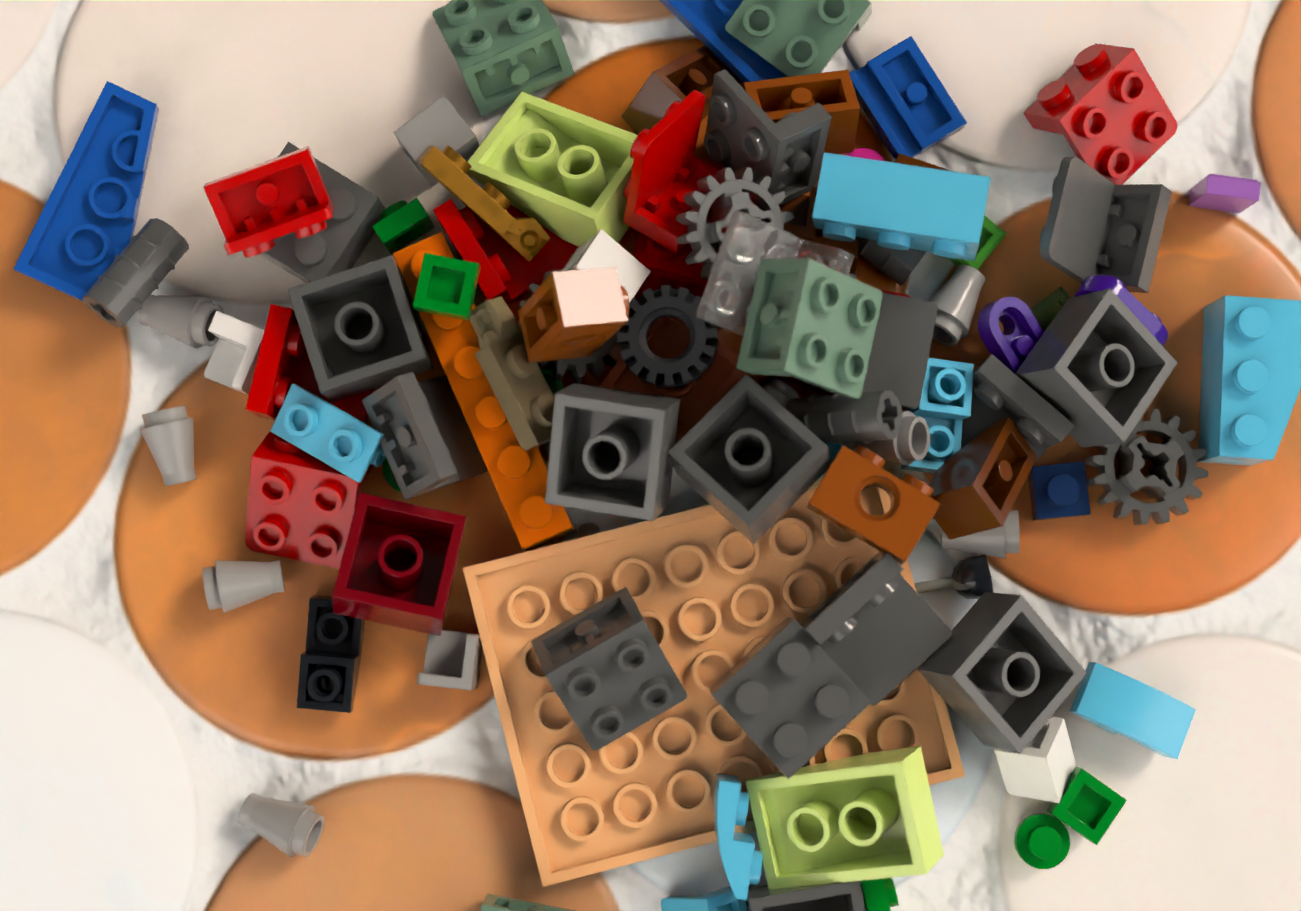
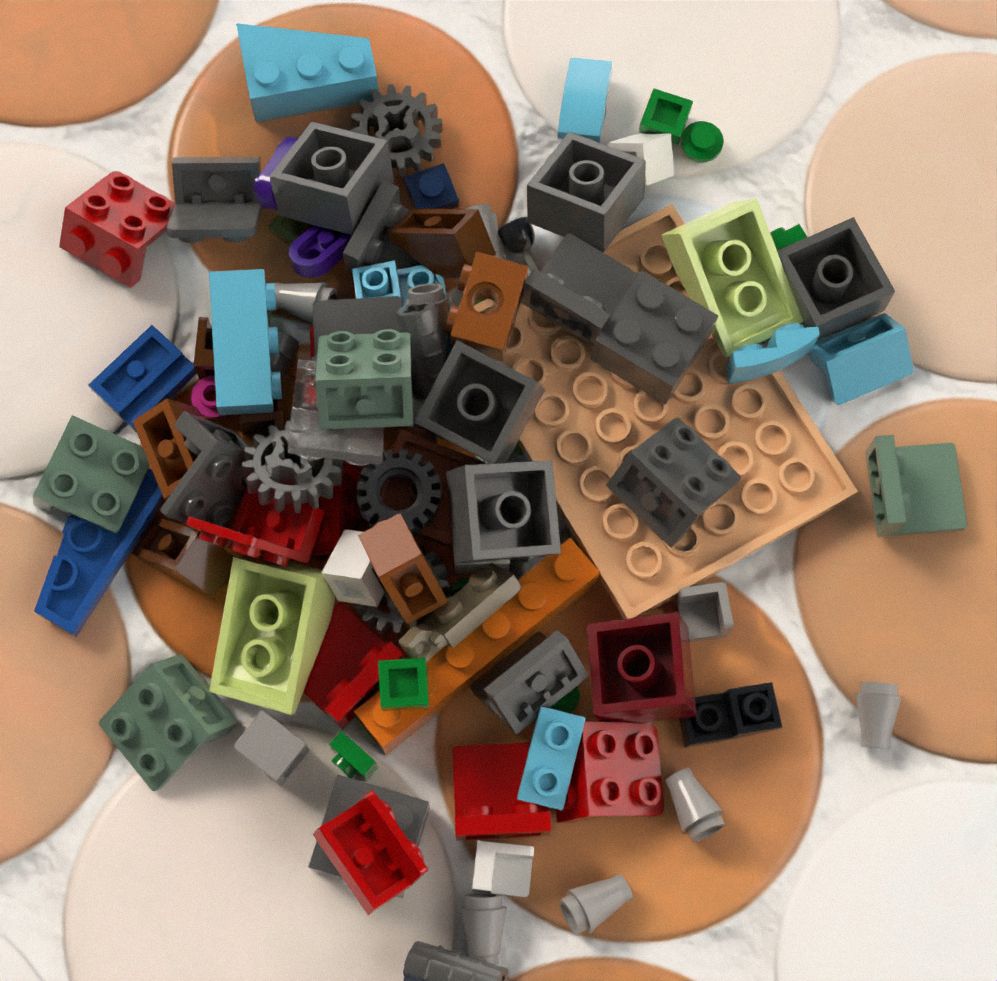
camera: 105 degrees left, 10 degrees down
(360, 328) = (455, 754): dark grey brick -> none
(486, 203) = (318, 683): pearl gold hinge -> none
(1225, 193) = (163, 122): medium lavender tile -> none

